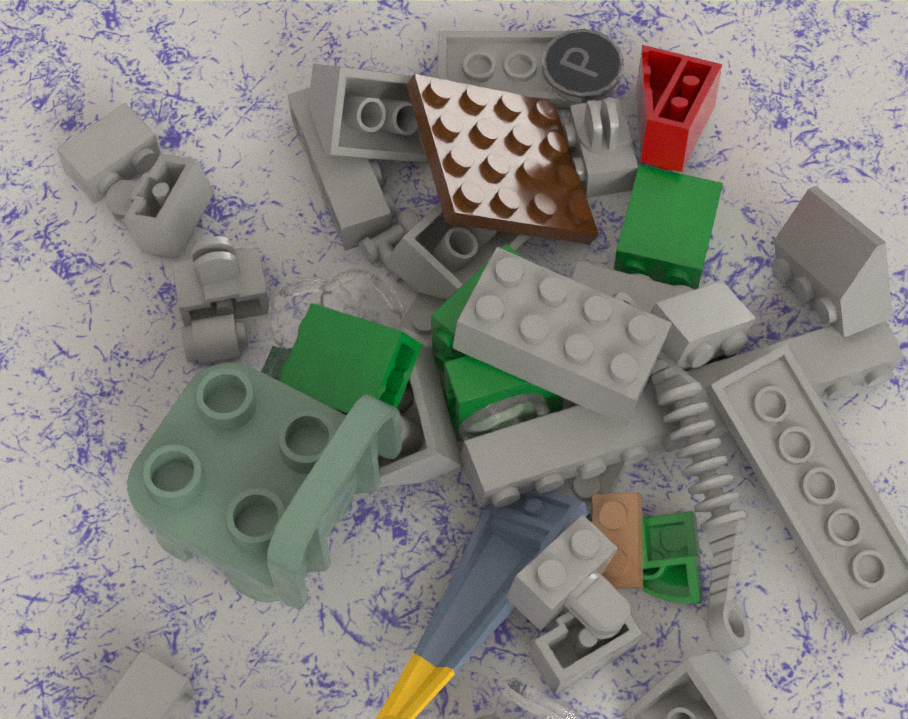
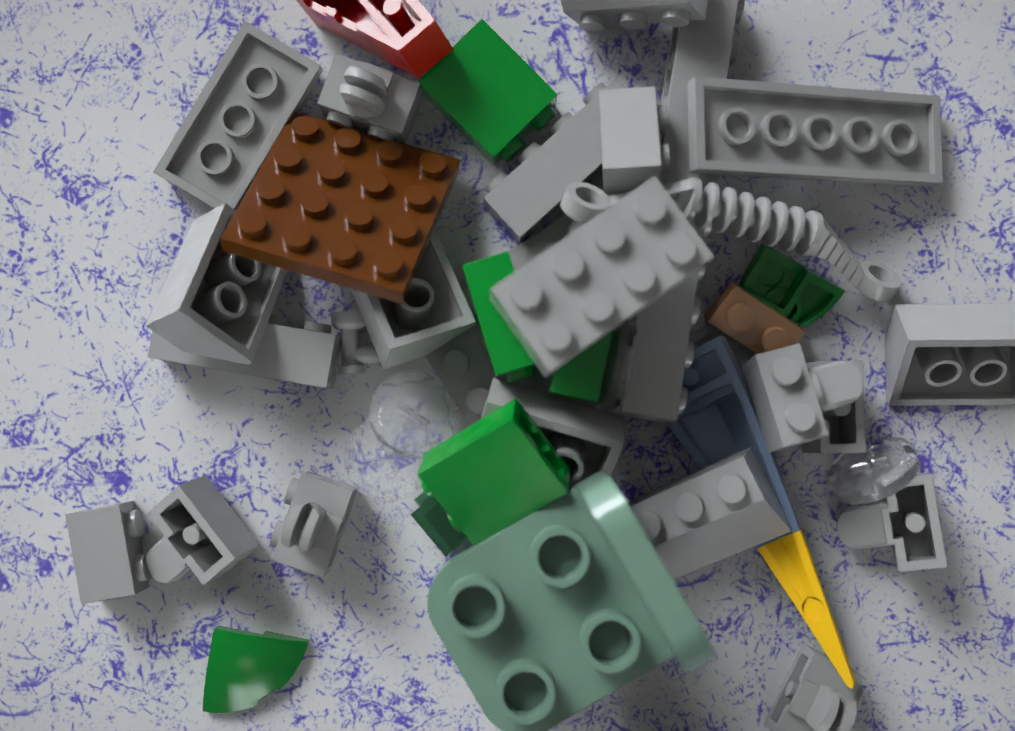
camera: 60 degrees left, 25 degrees up
(65, 304) = (248, 667): none -> green brick
(214, 339) = (364, 556): light grey brick -> none
(416, 583) = (711, 514): none -> light grey slope
(582, 66) = (277, 63): black tile -> none

